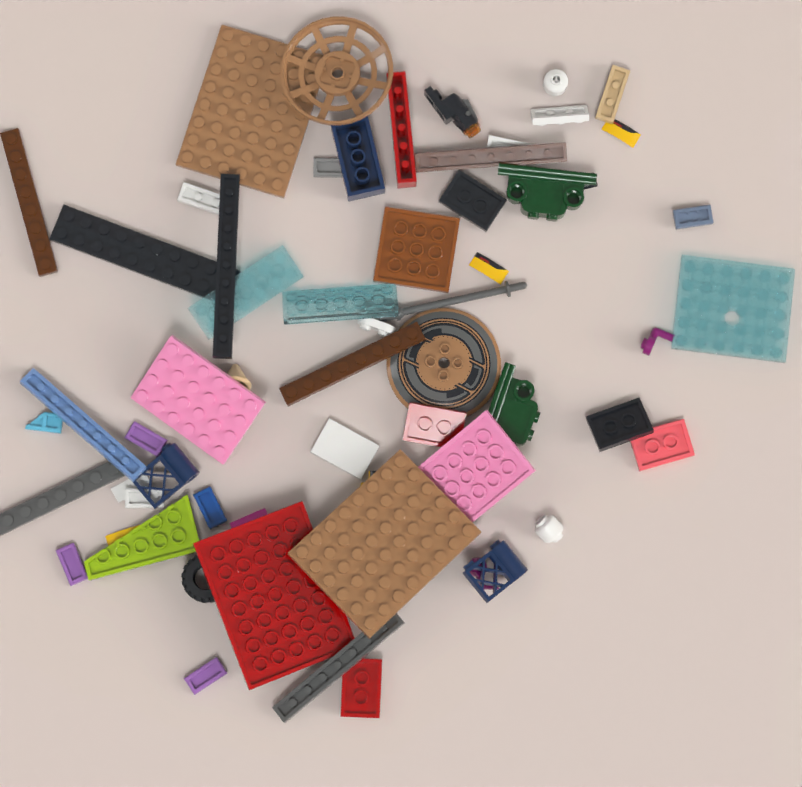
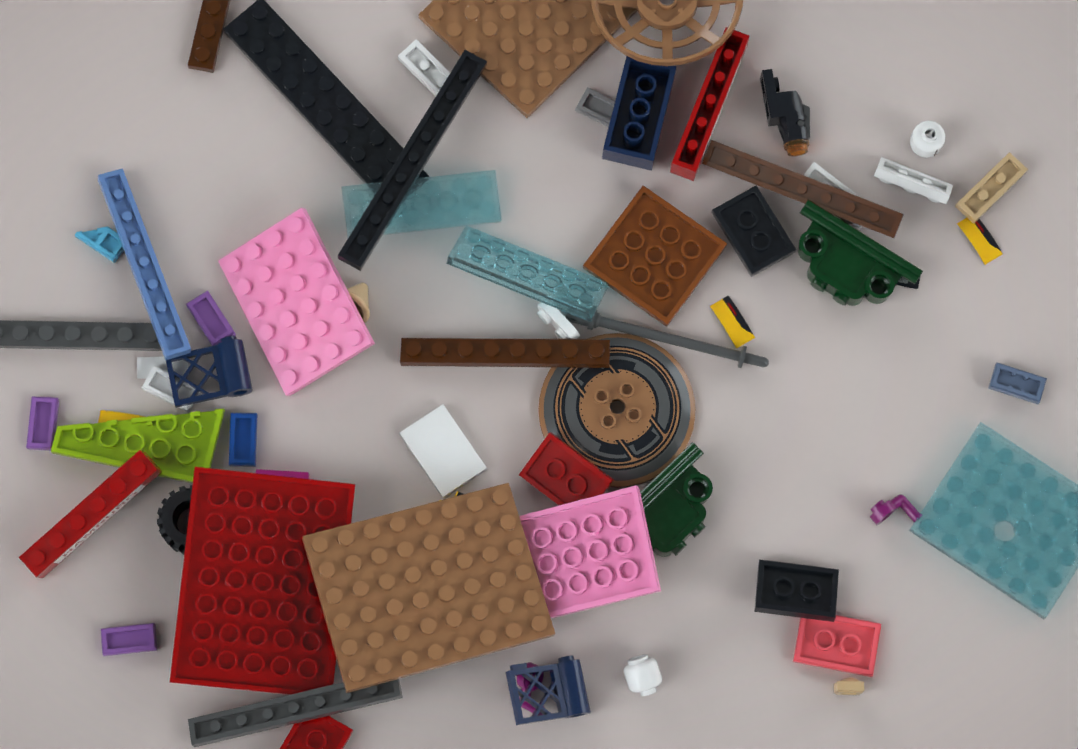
camera: 30 degrees right, 5 degrees down
(138, 608) = (90, 514): none -> red brick
(683, 469) = (849, 686): none -> tan tile

